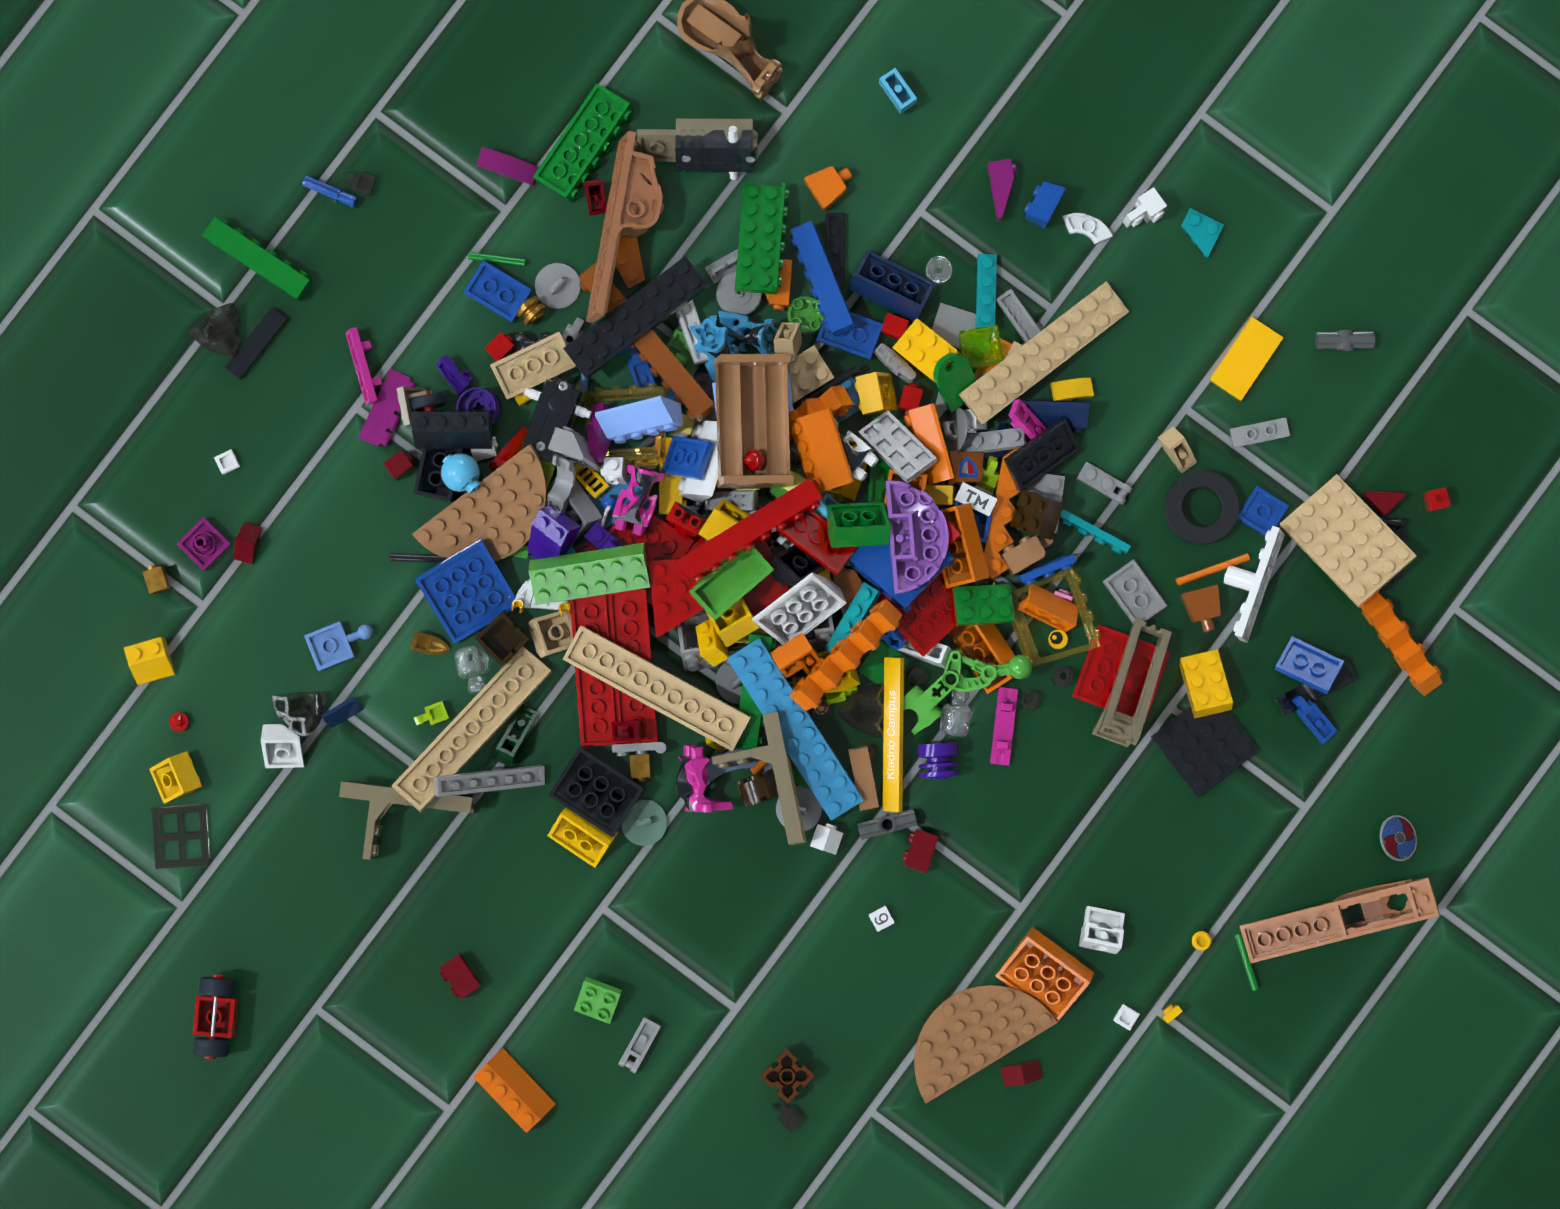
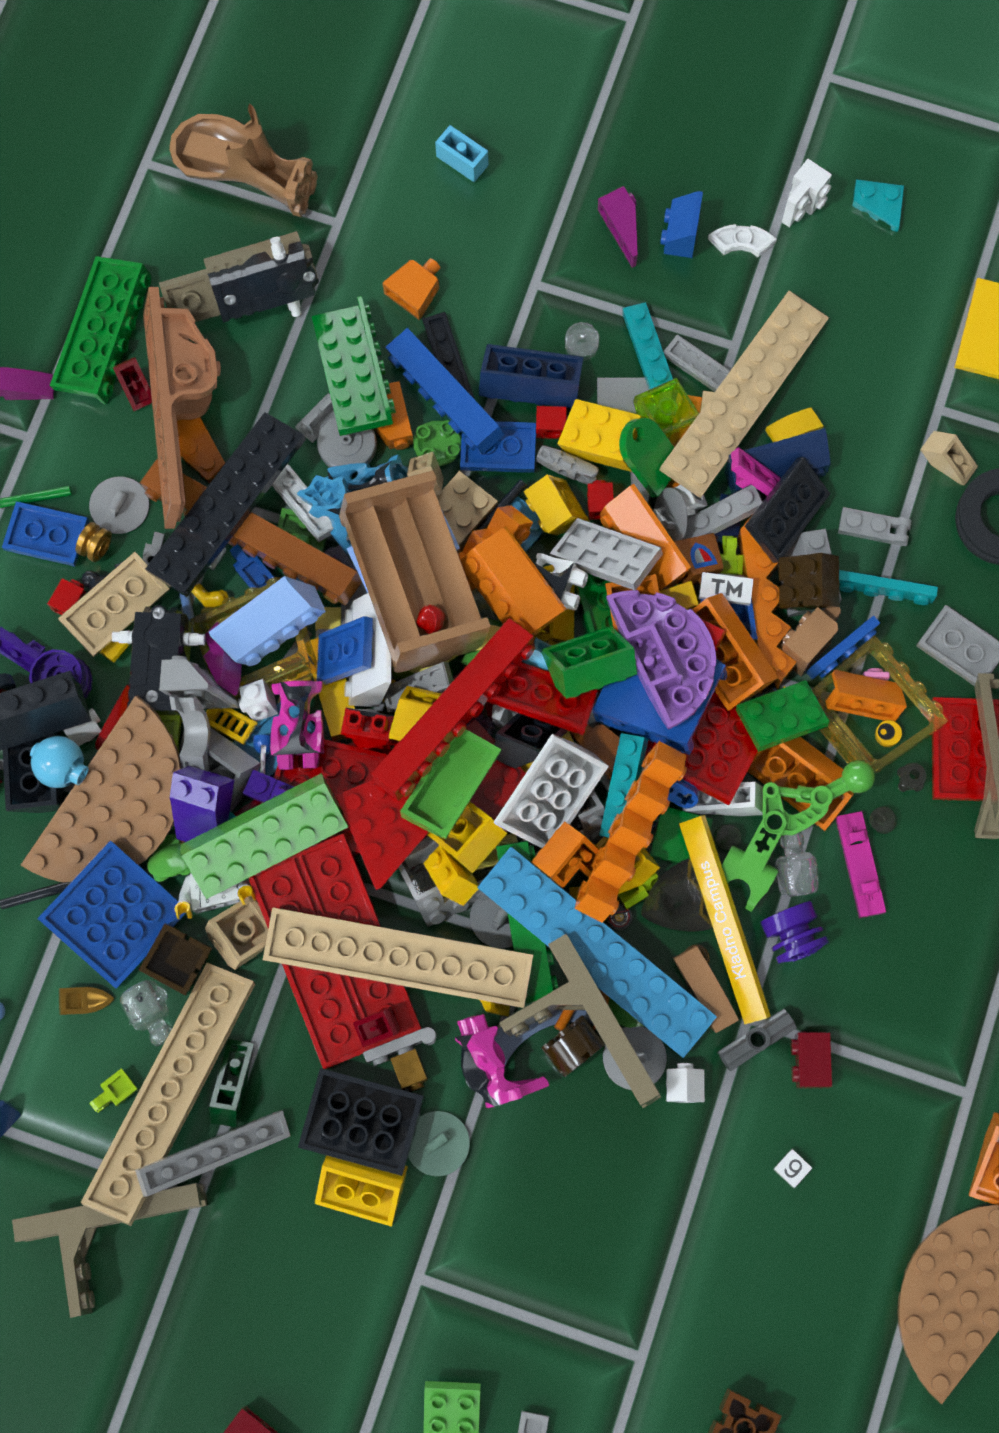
camera: 15 degrees left, 10 degrees down
(517, 566) = (167, 863): none -> bright green dish
(604, 381) = (209, 599): none -> yellow arm

